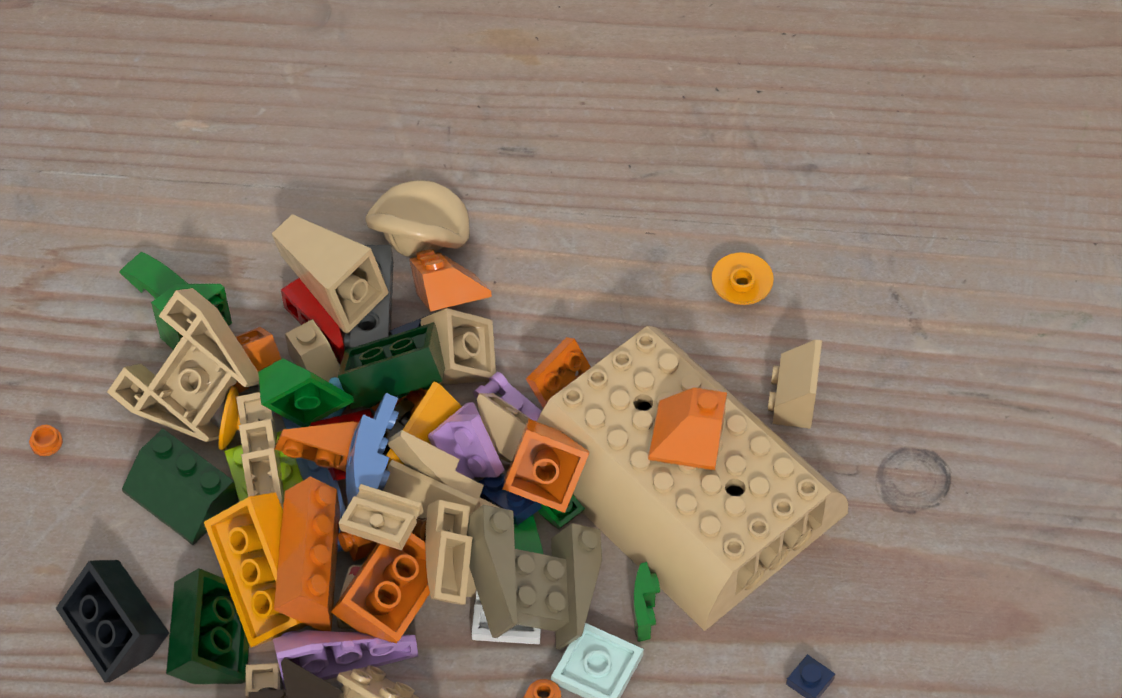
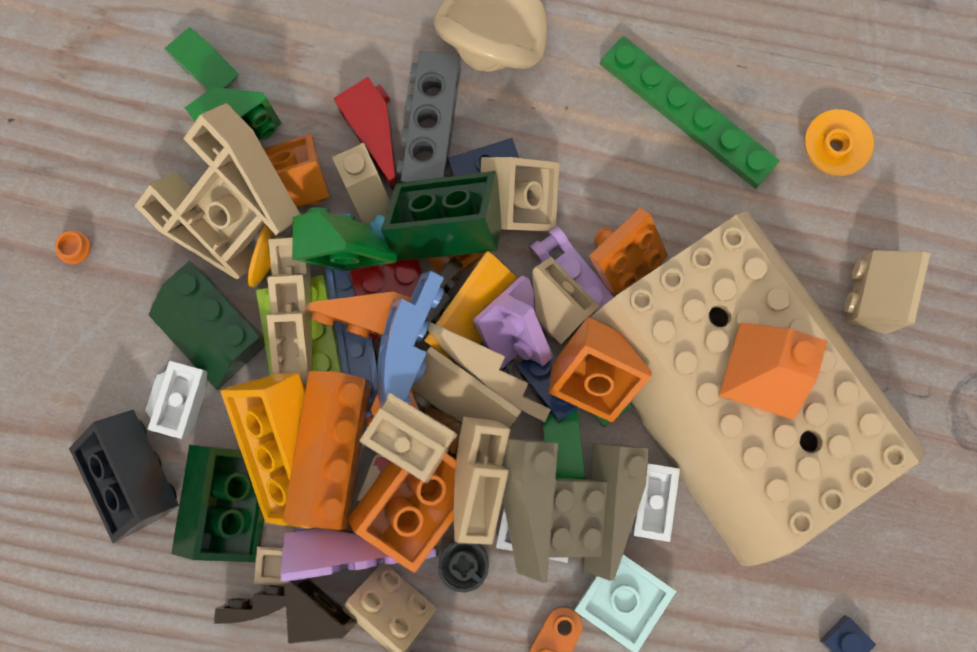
camera: 10 degrees right, 25 degrees up
(157, 550) = (176, 400): none -> white slope
(333, 268) = (391, 86): tan slope -> none
(443, 654) = (463, 566): none -> pearl dark grey wheel
(444, 282) = (516, 116): orange slope -> none
(607, 272) = (689, 112): none -> green plate
(614, 580) = (657, 504): none -> white slope
(644, 600) = (686, 518): green slope -> none

